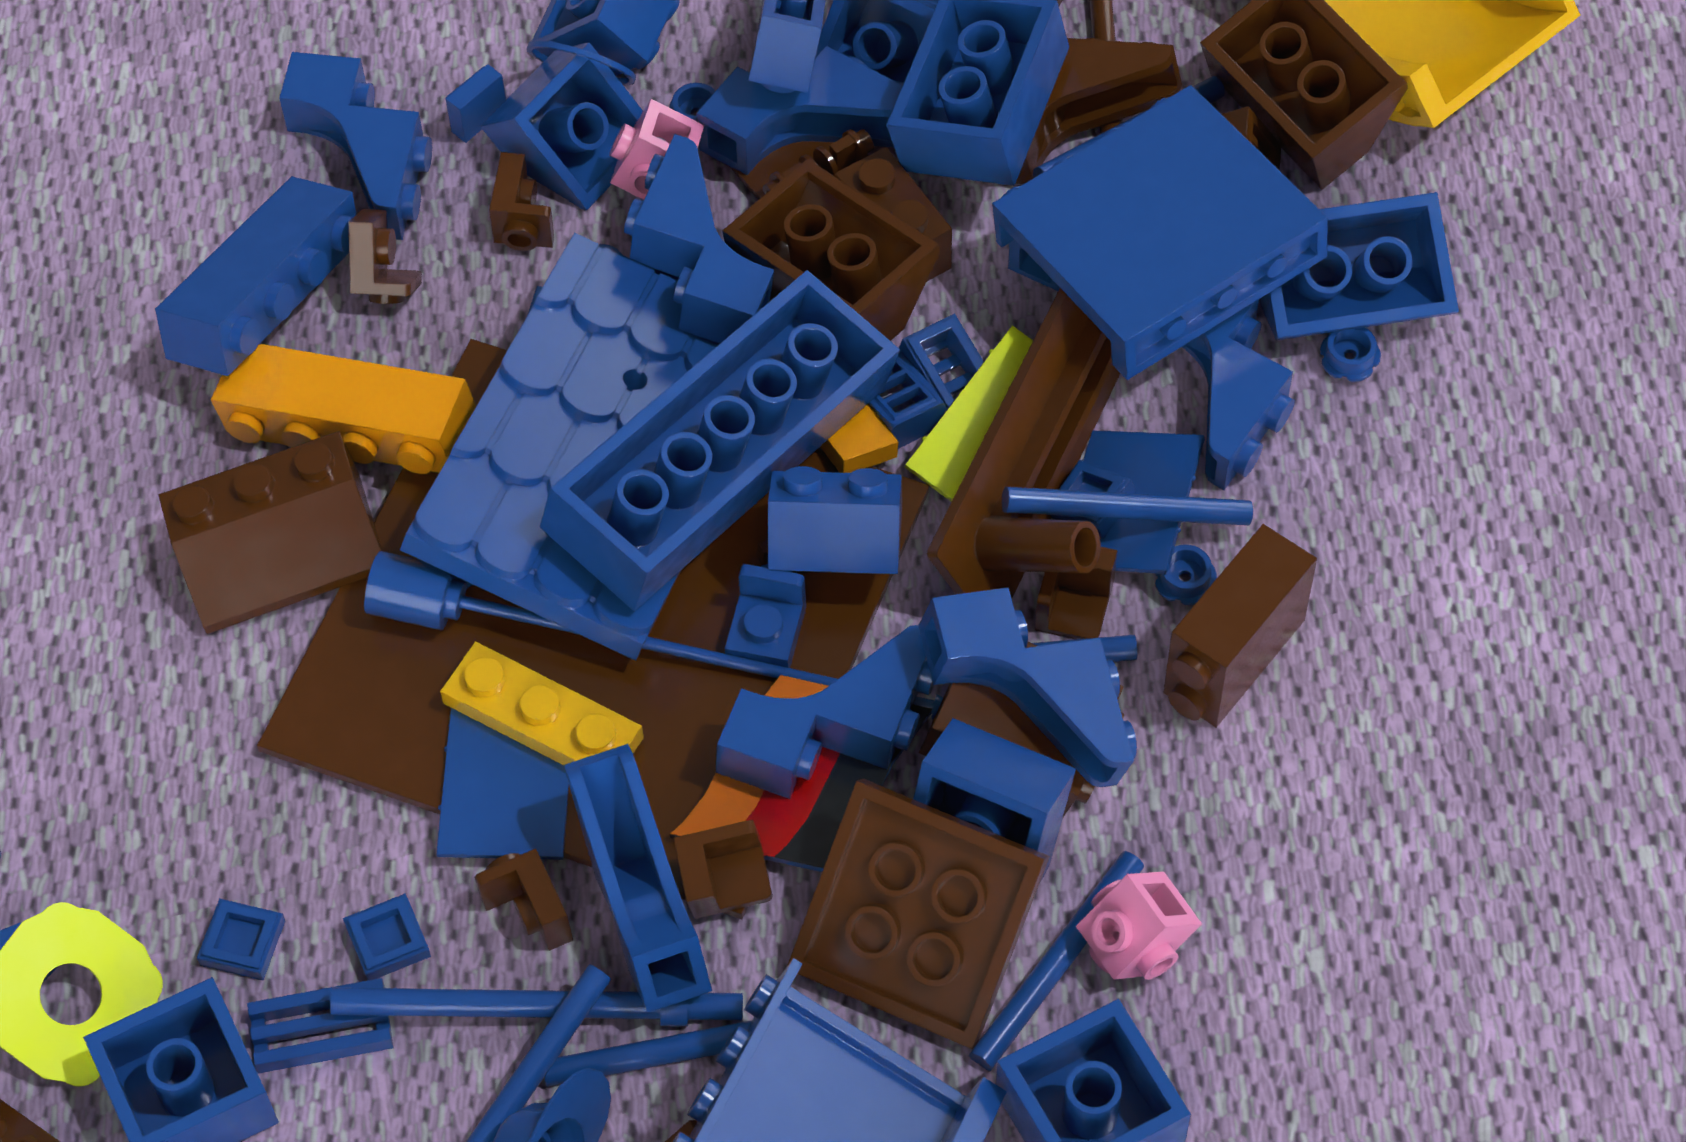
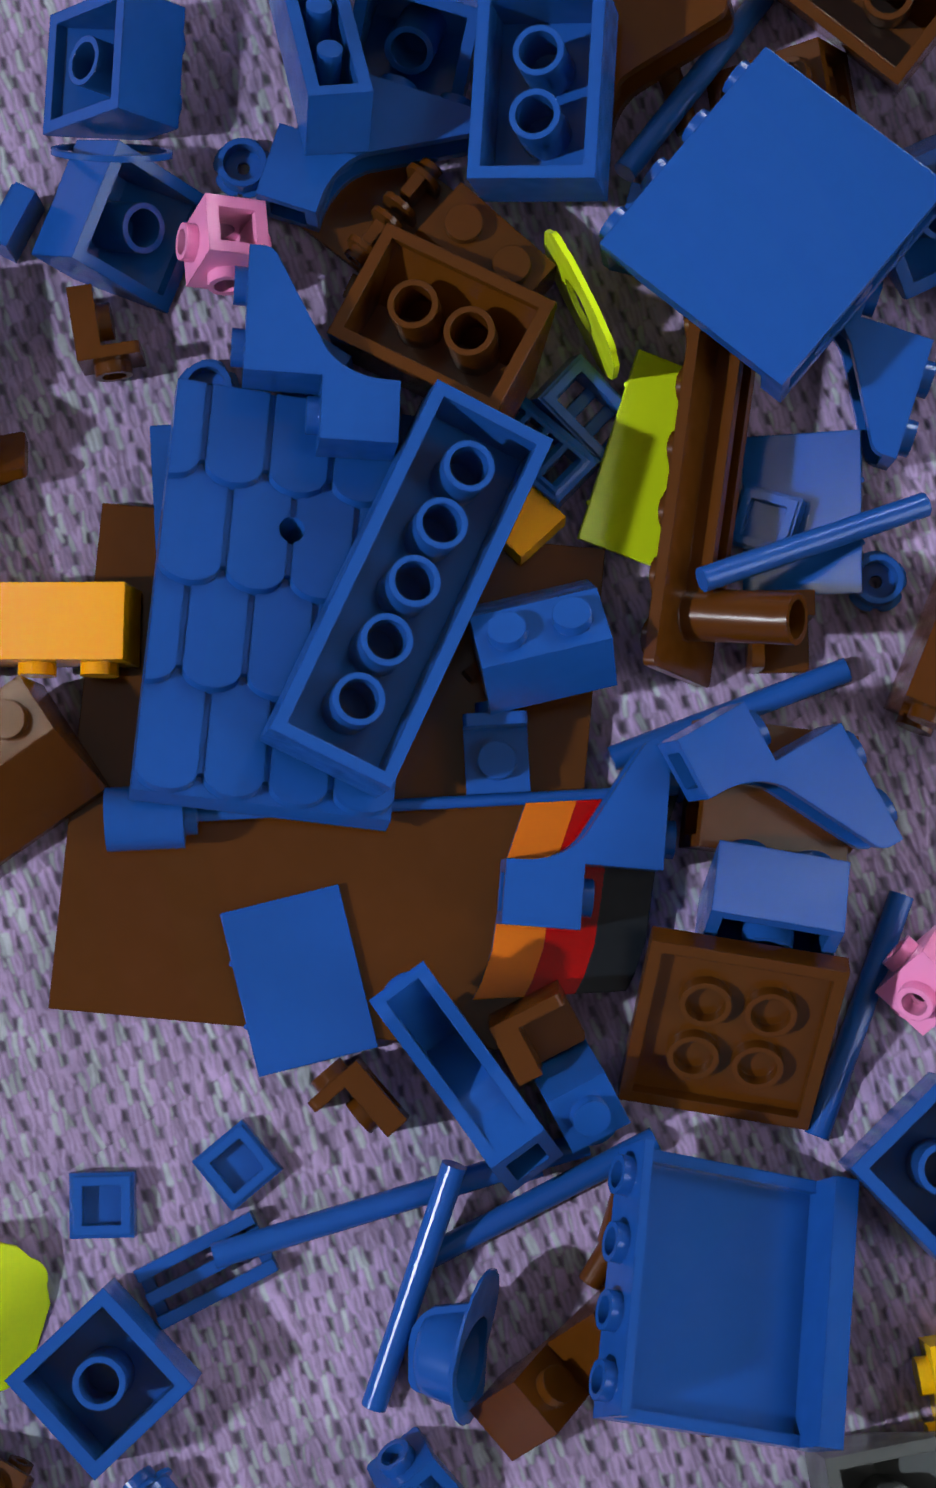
camera: 20 degrees left, 25 degrees up
(535, 708) = (312, 910): yellow plate -> none
(746, 946) = (581, 1097): none -> blue brick
(965, 264) = (595, 331): none -> neon yellow piece

